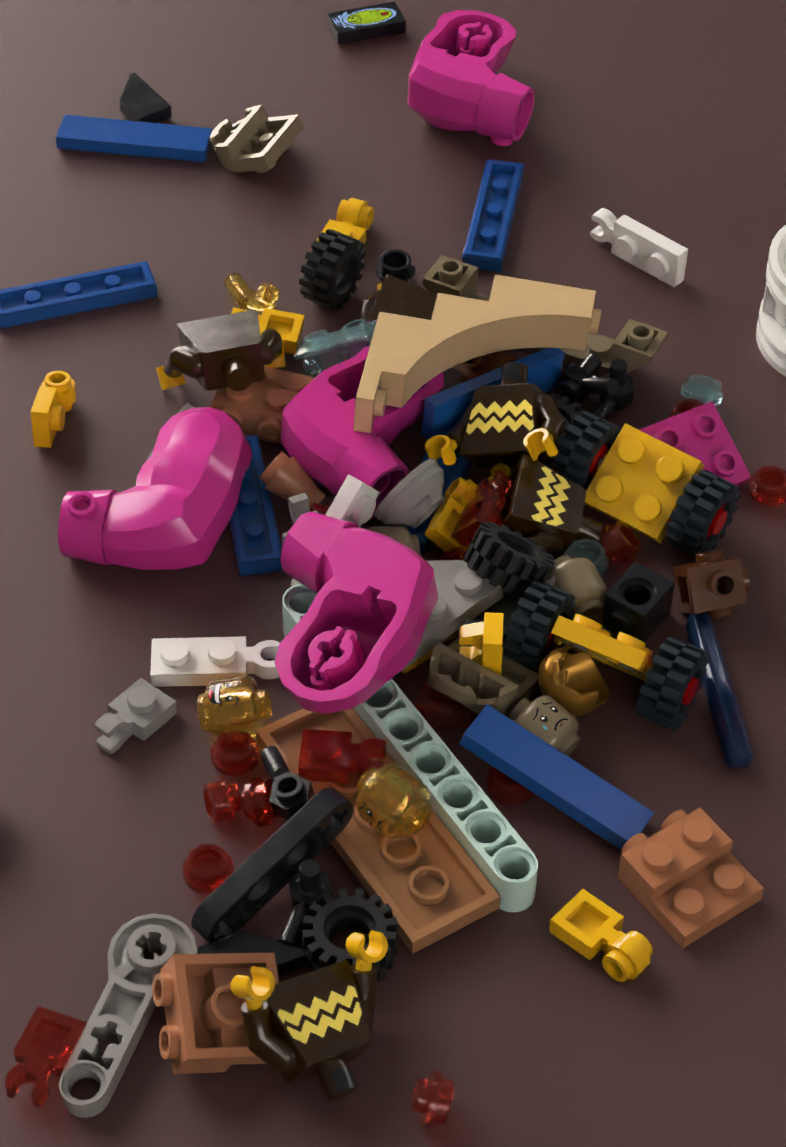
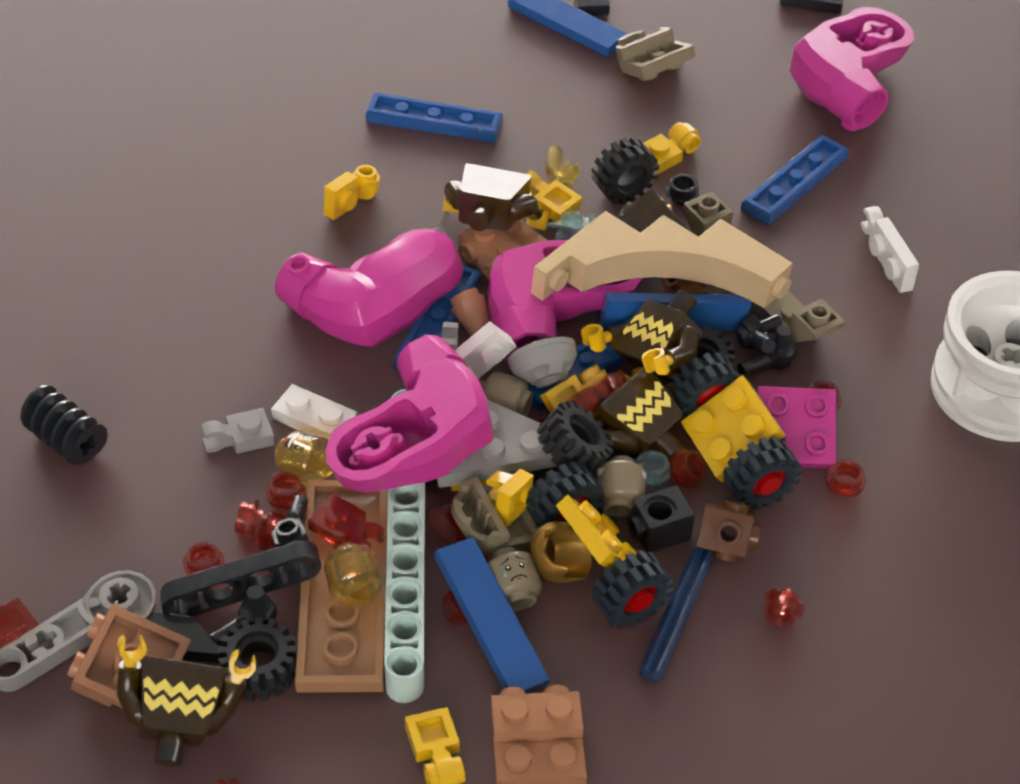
camera: 30 degrees right, 0 degrees up
(702, 389) = (849, 381): clear light blue plate -> none

